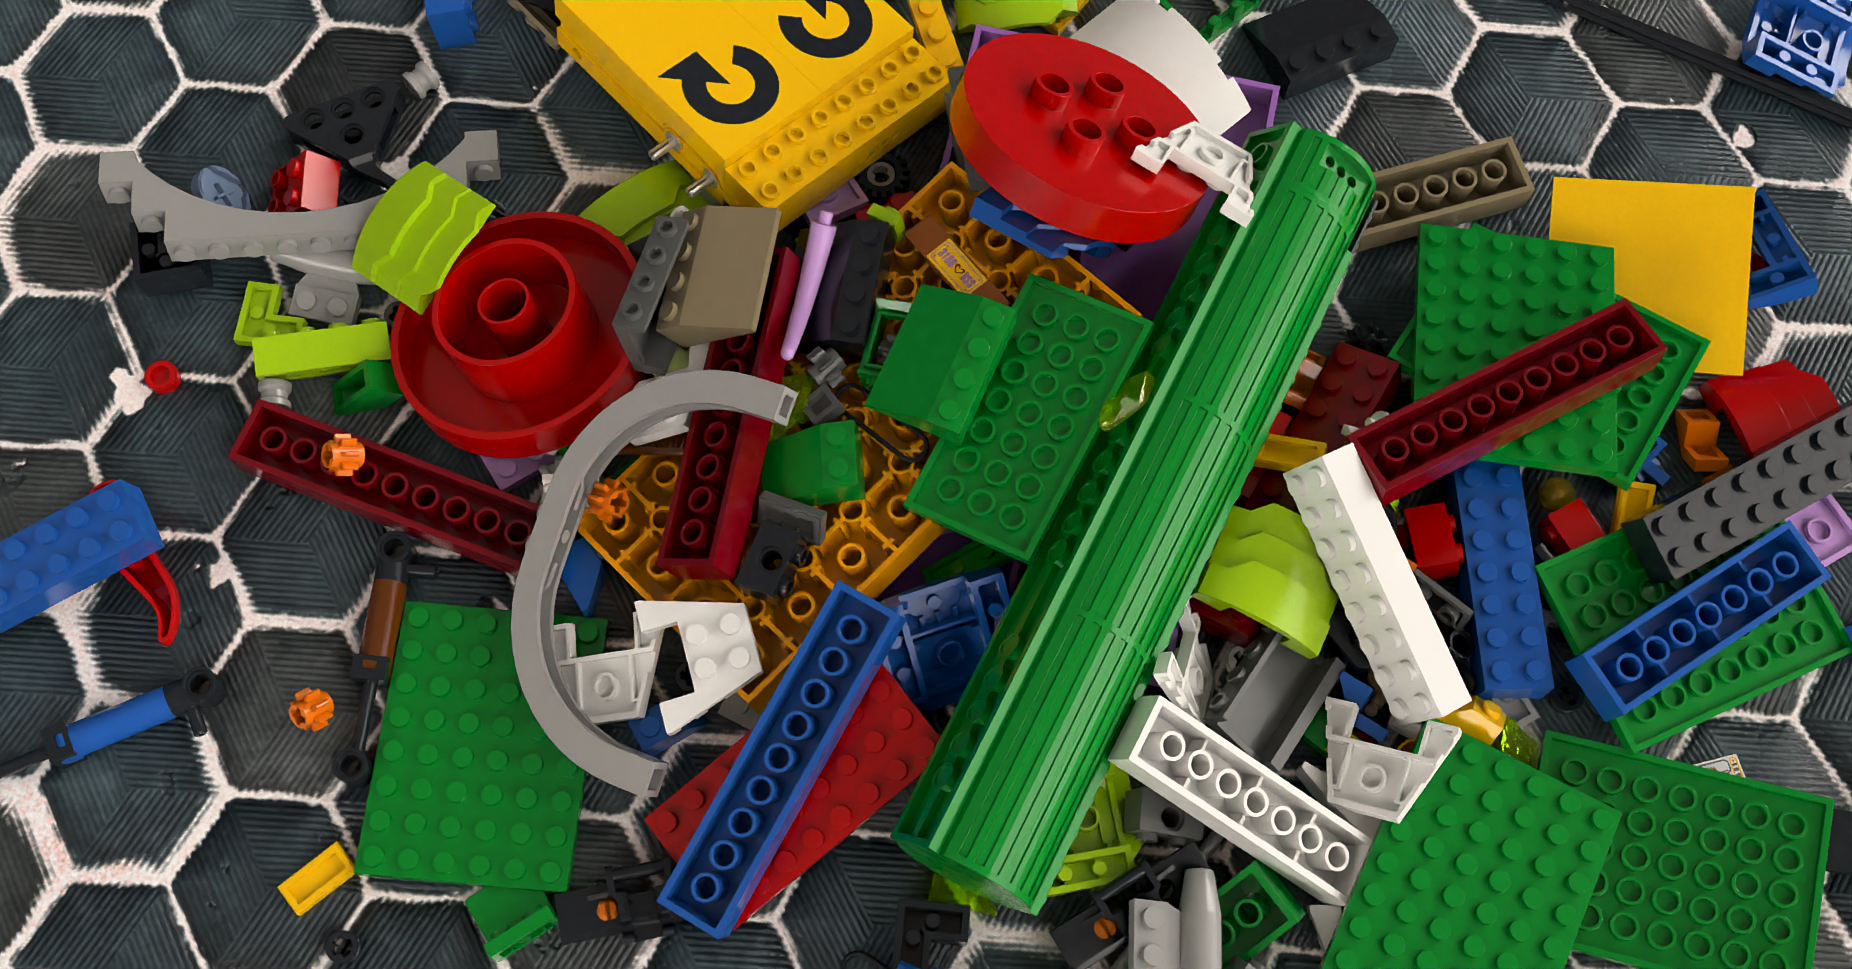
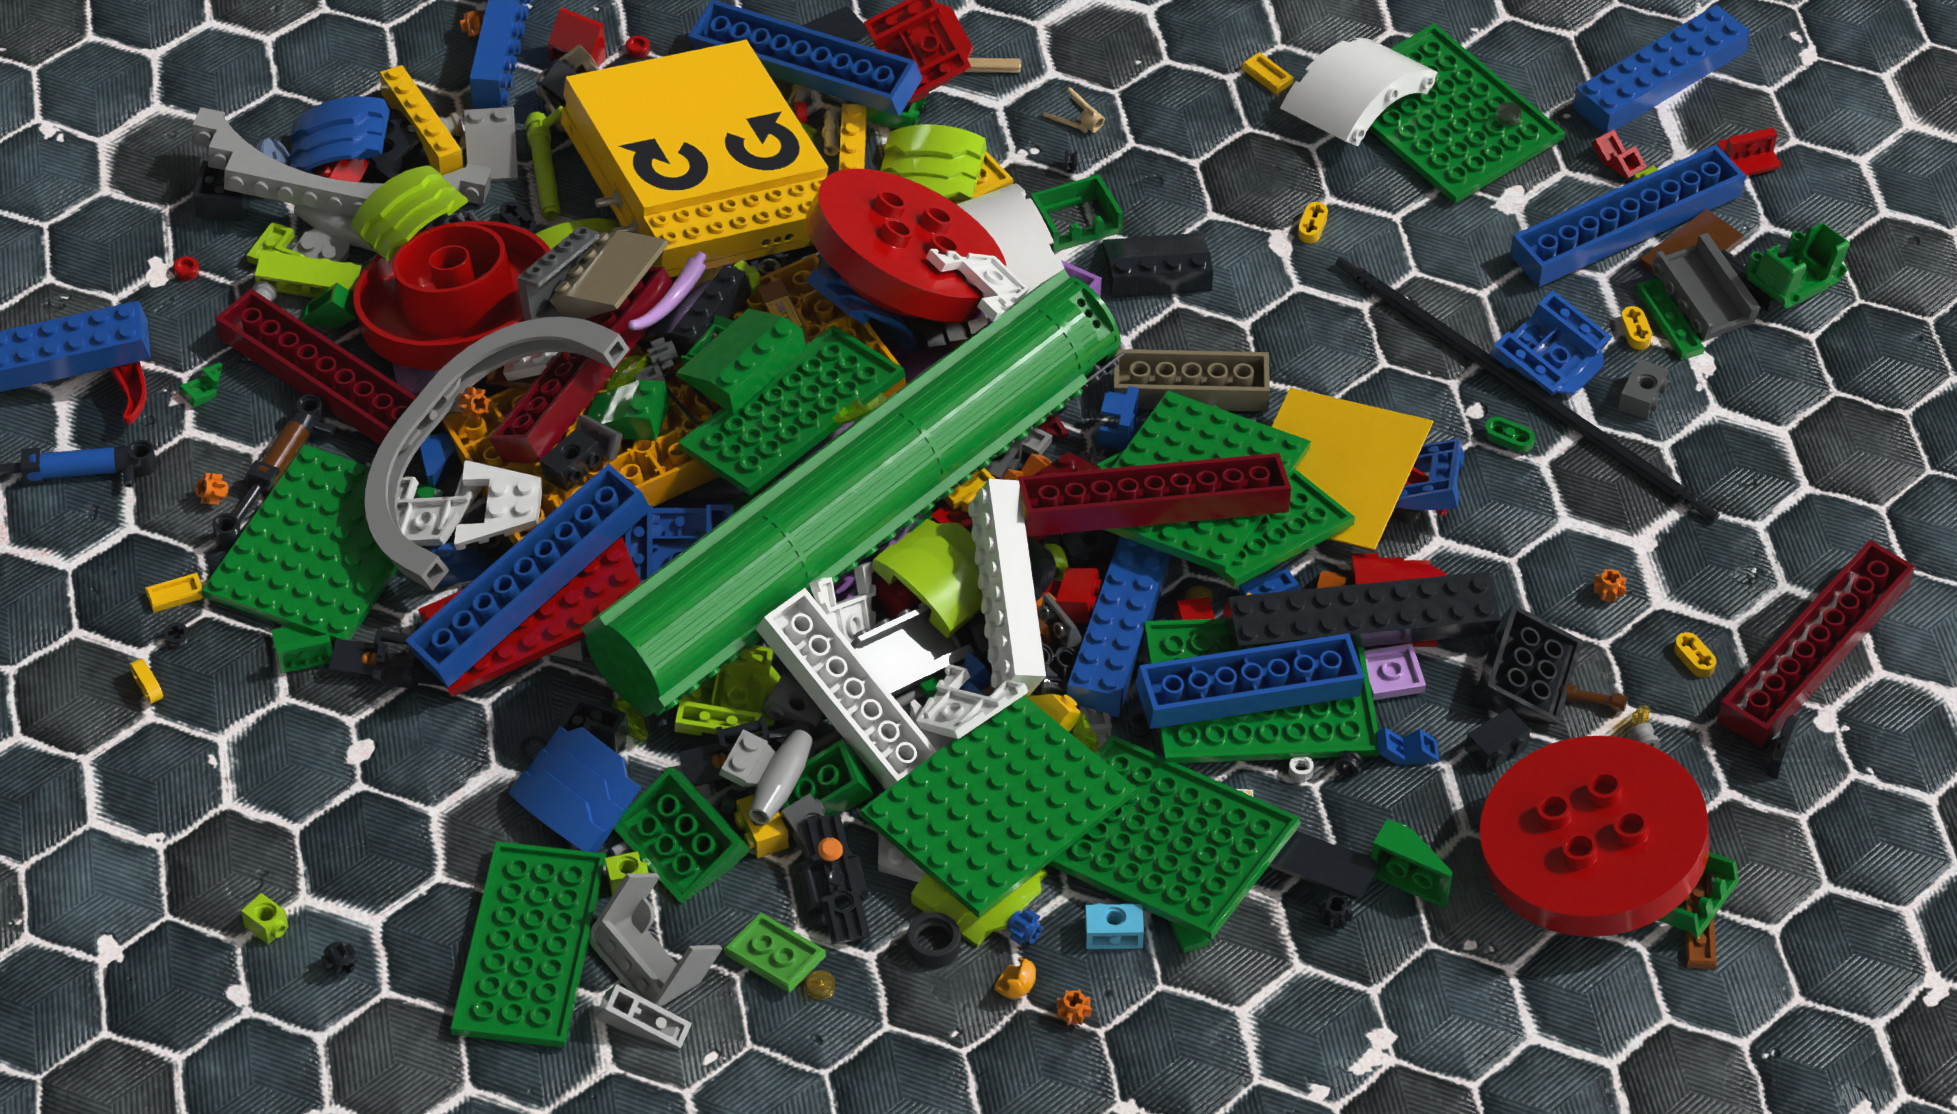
camera: 20 degrees right, 20 degrees down
(246, 551) = (203, 388): none -> green slope
(288, 136) = (339, 132): none -> blue slope
(343, 455) = (297, 331): orange gear -> none
(415, 111) = (405, 96): none -> yellow arch
(481, 90) = (492, 141): none -> light grey slope
(536, 68) = (539, 139): none -> lime cylinder
(555, 185) = (522, 217): none -> black beam
(1383, 283) = (1123, 407): none -> blue panel
(1769, 712) = (1298, 775): none -> white axle
(1799, 161) = (1509, 434): none -> green plate
(1827, 680) = (1348, 763): none -> black bush

